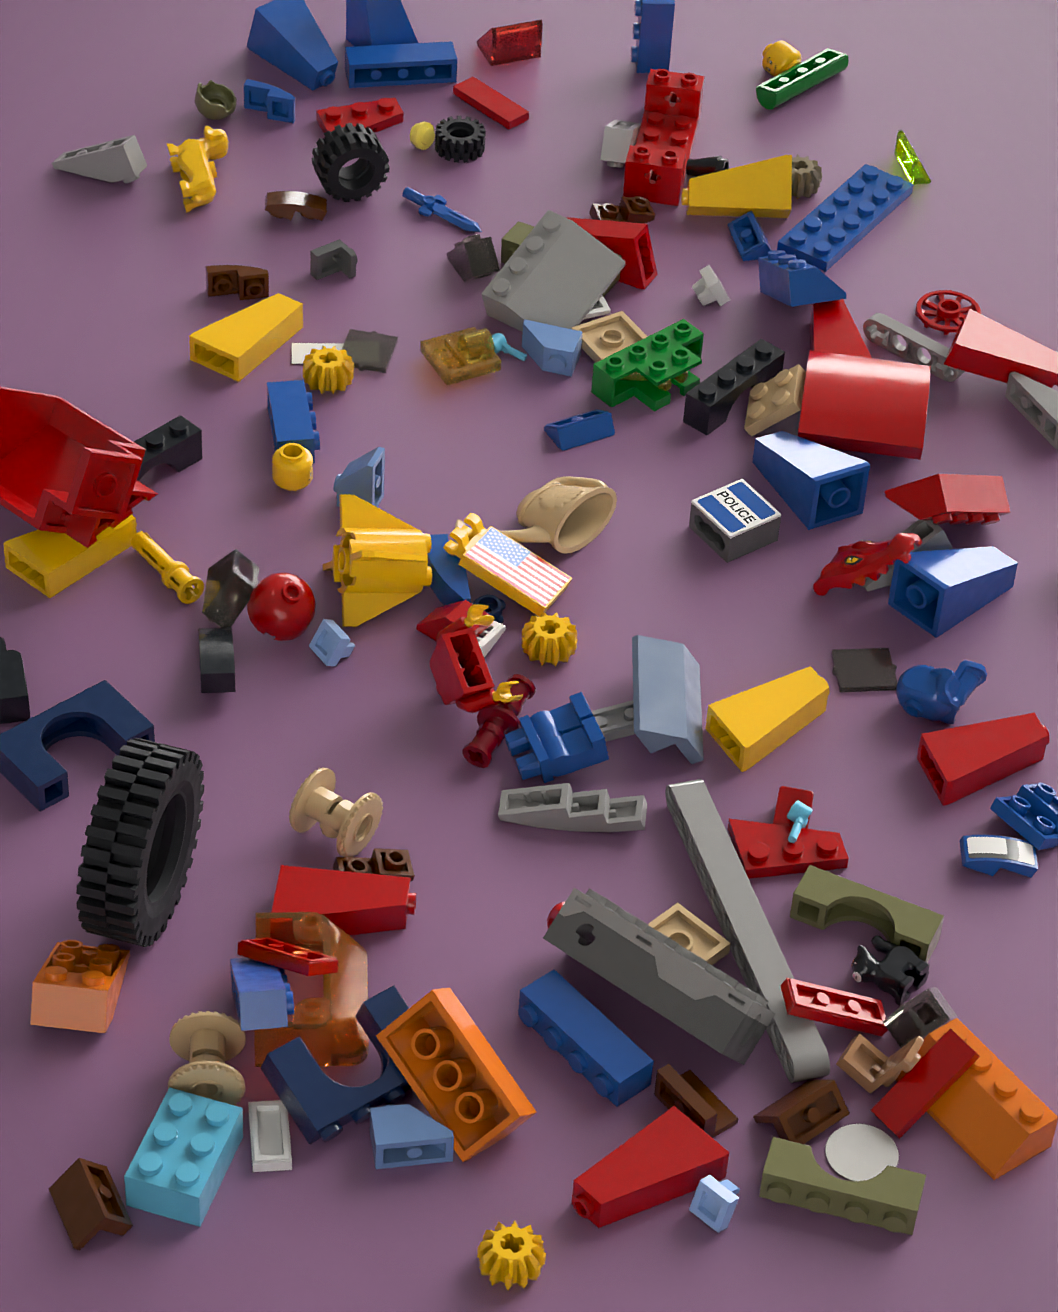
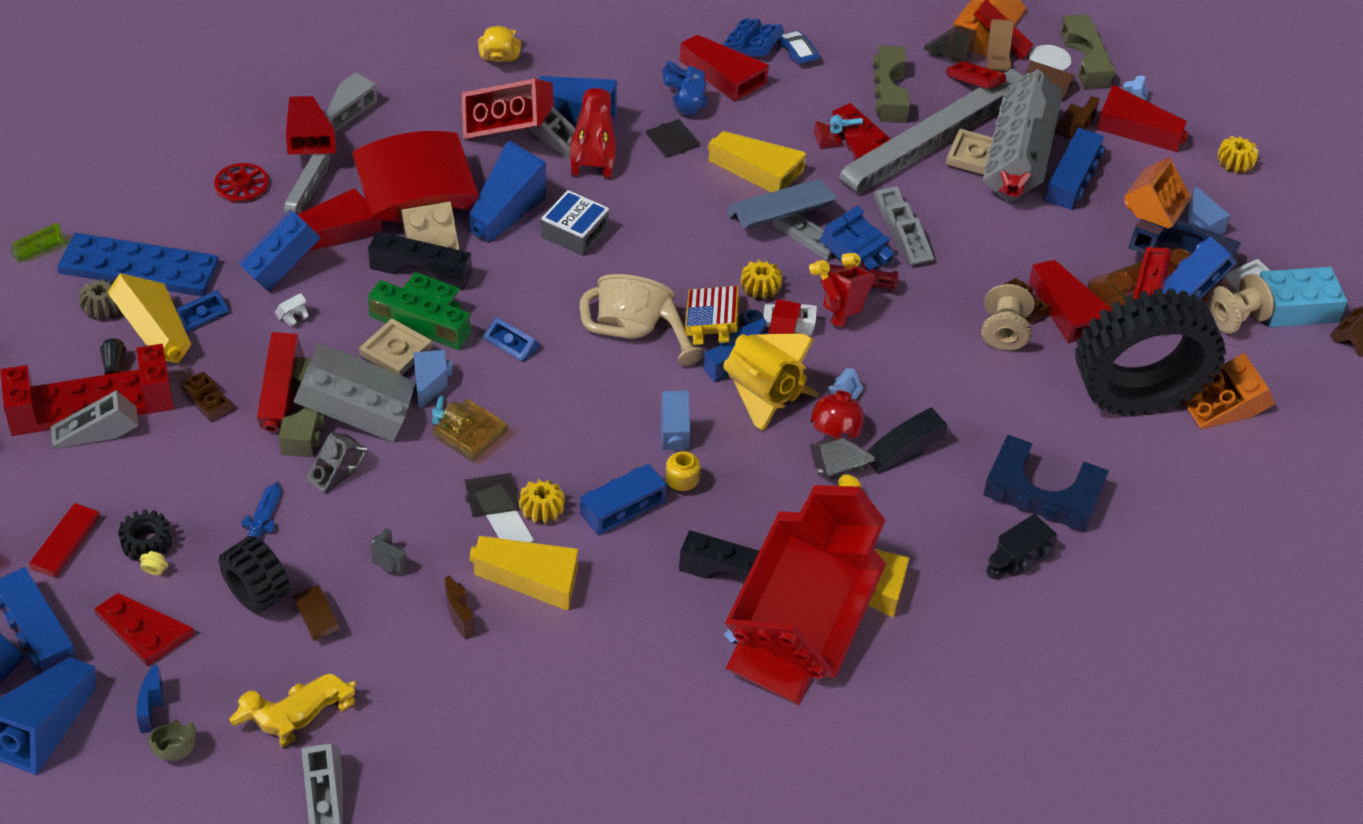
camera: 115 degrees left, 5 degrees up
(892, 974) = (923, 67): black animal -> none

